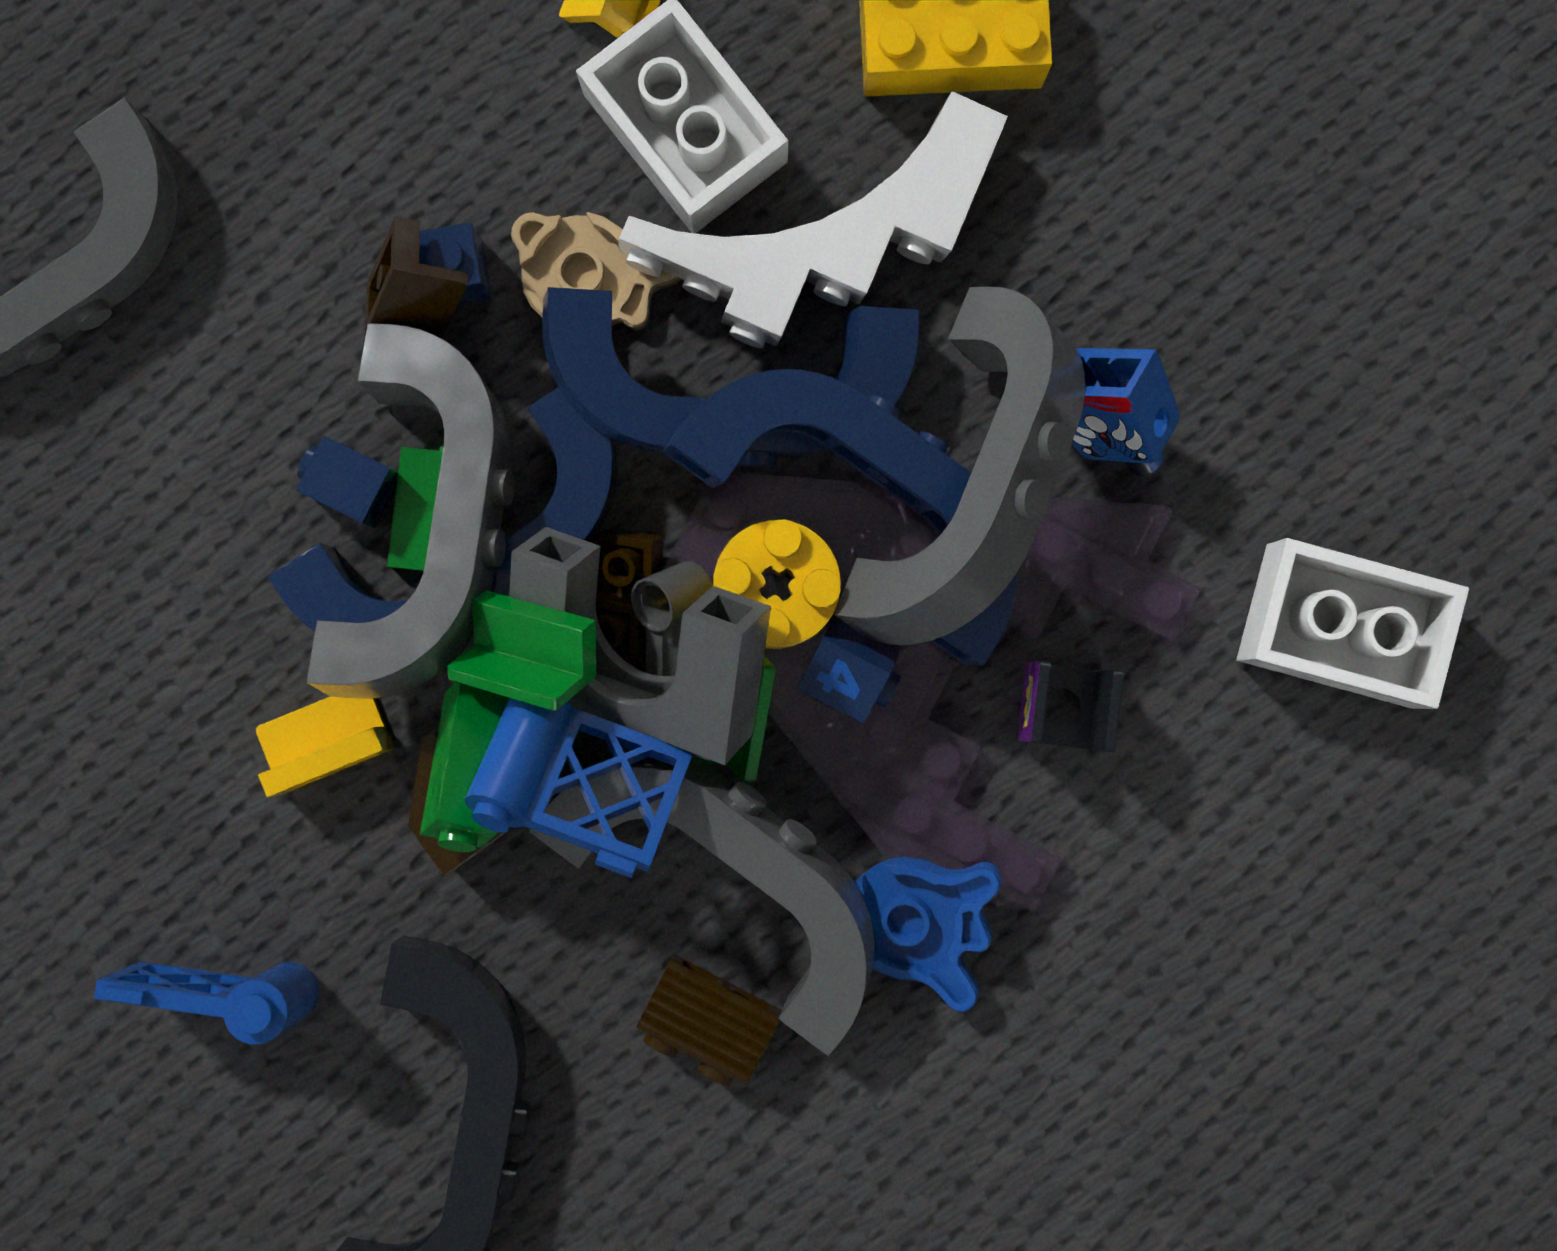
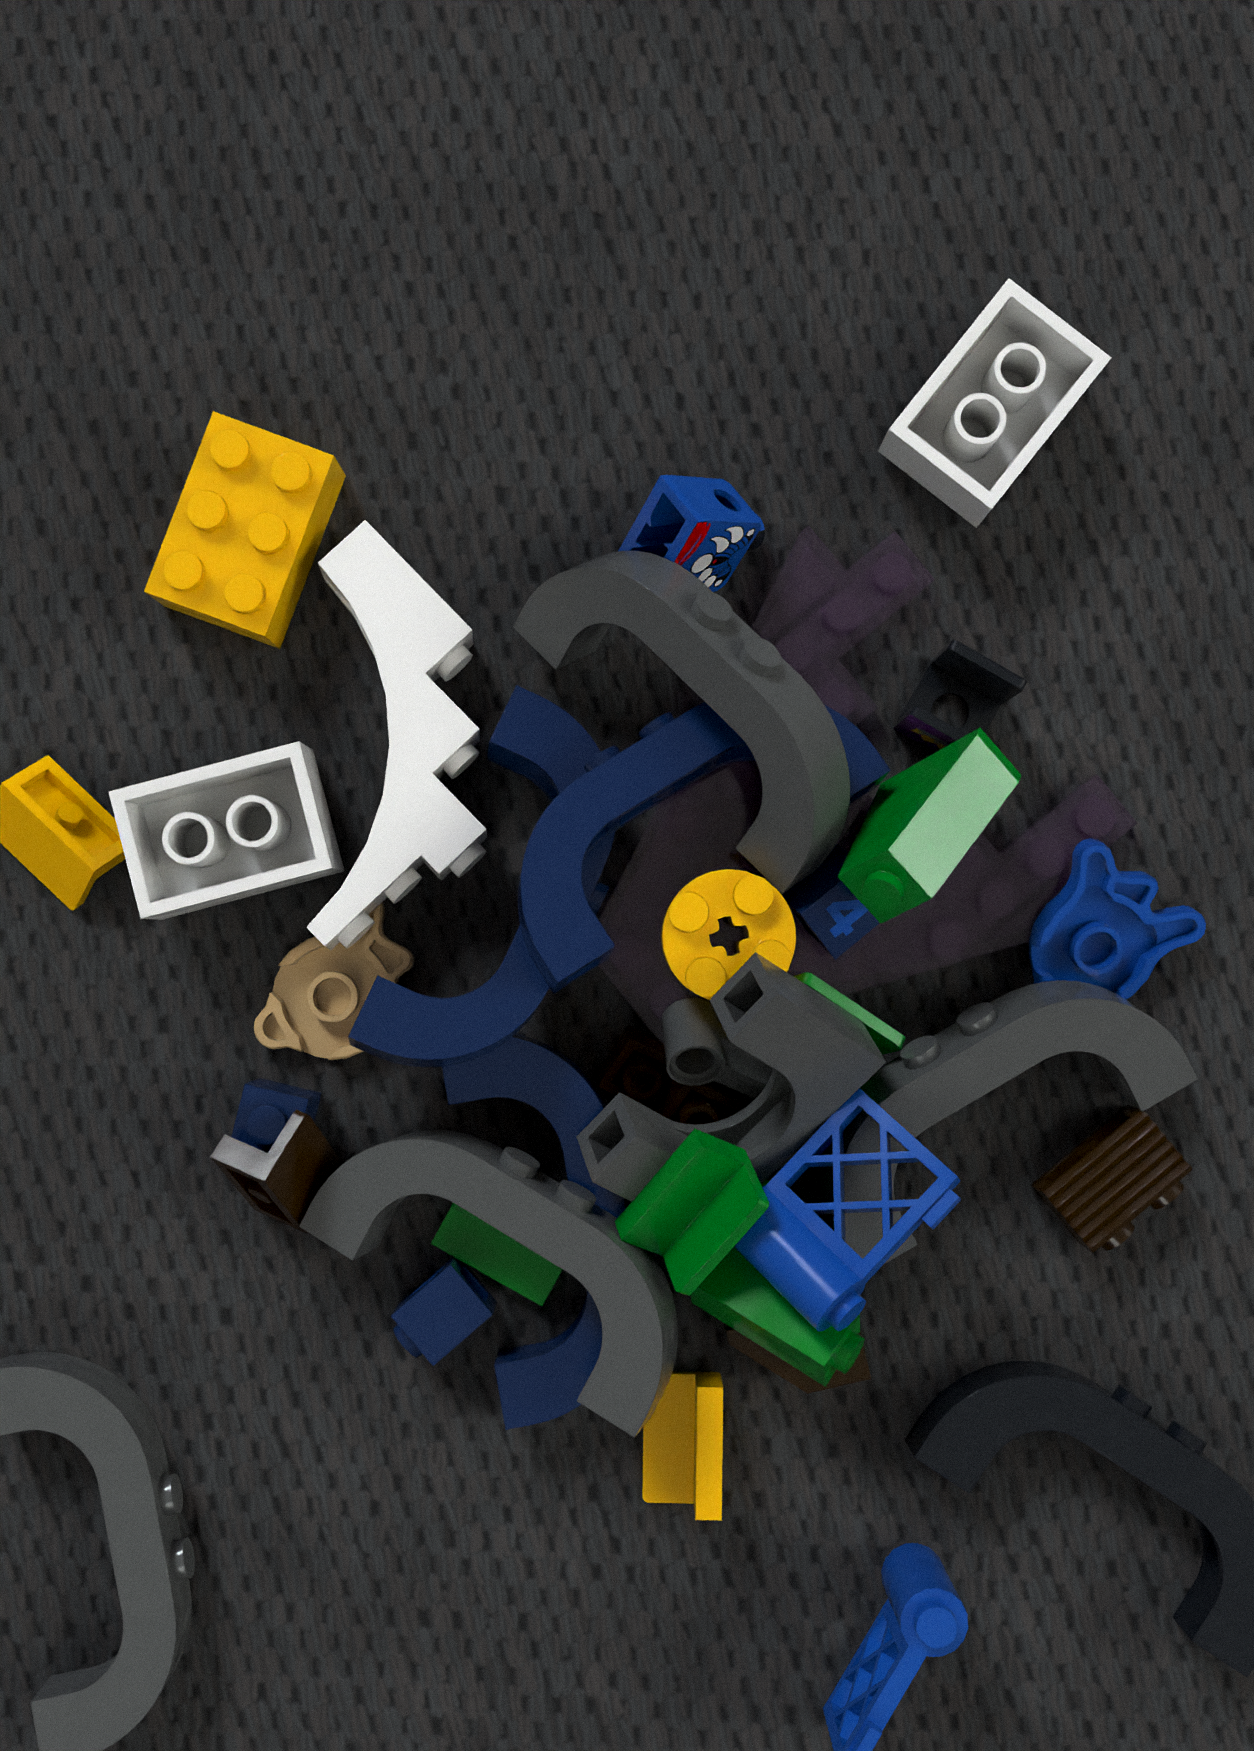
camera: 65 degrees left, 0 degrees up
(948, 714) = (926, 824): none -> green slope

